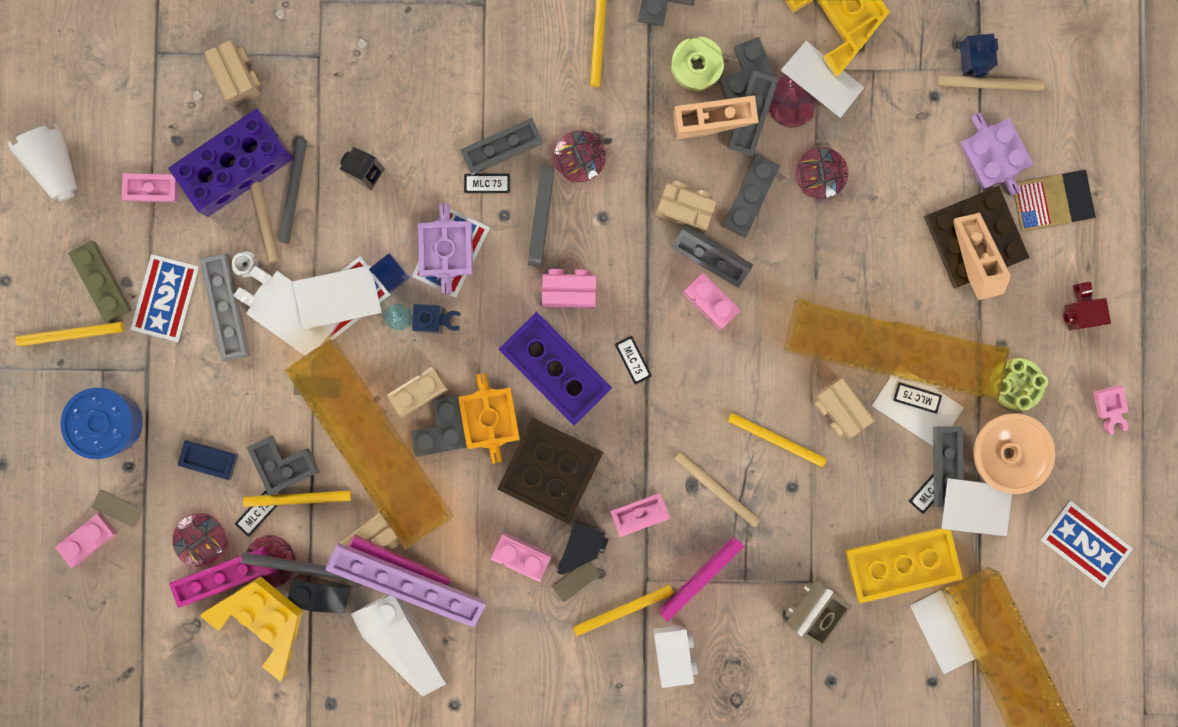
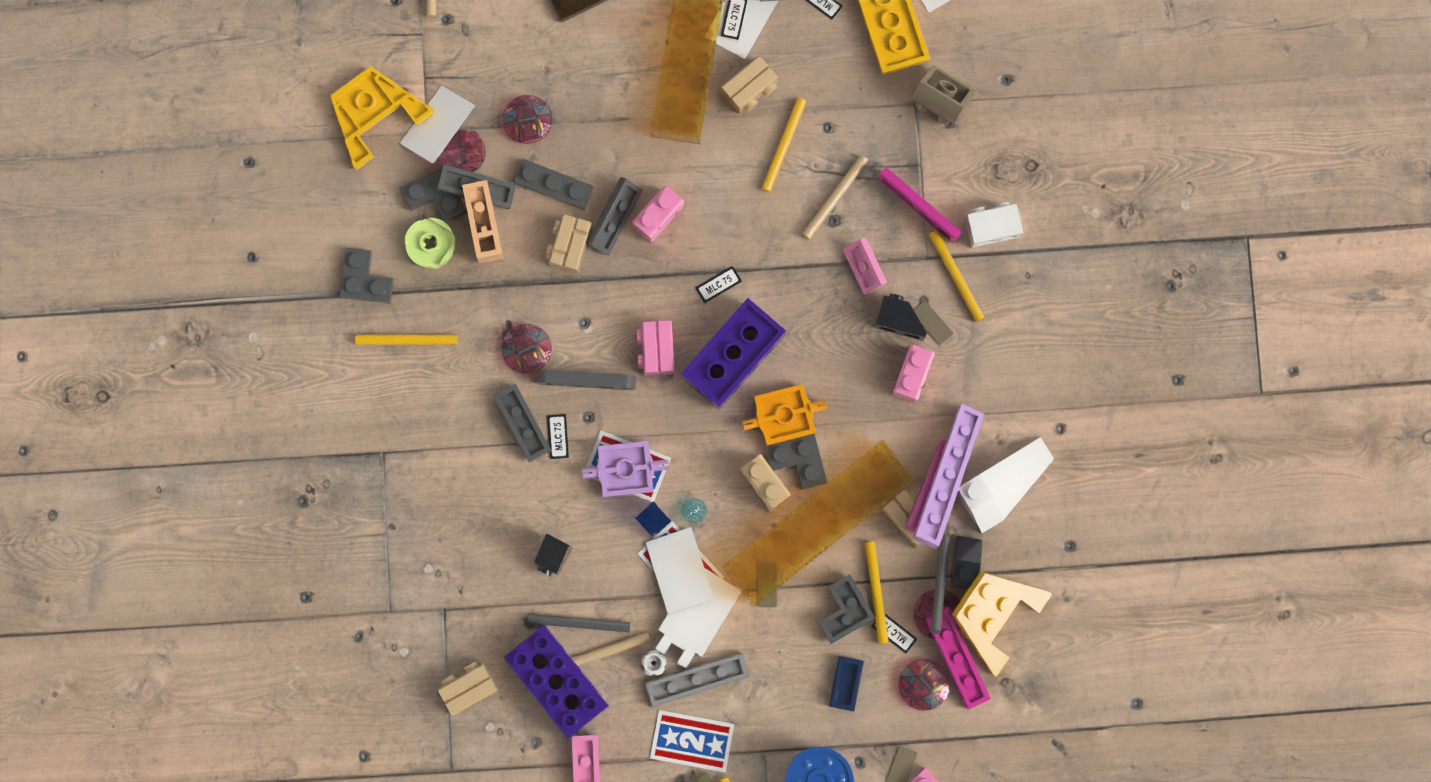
camera: 85 degrees left, 5 degrees down
(432, 319) = (695, 475): dark blue brick -> none
(550, 470) = (829, 353): dark brown plate -> none

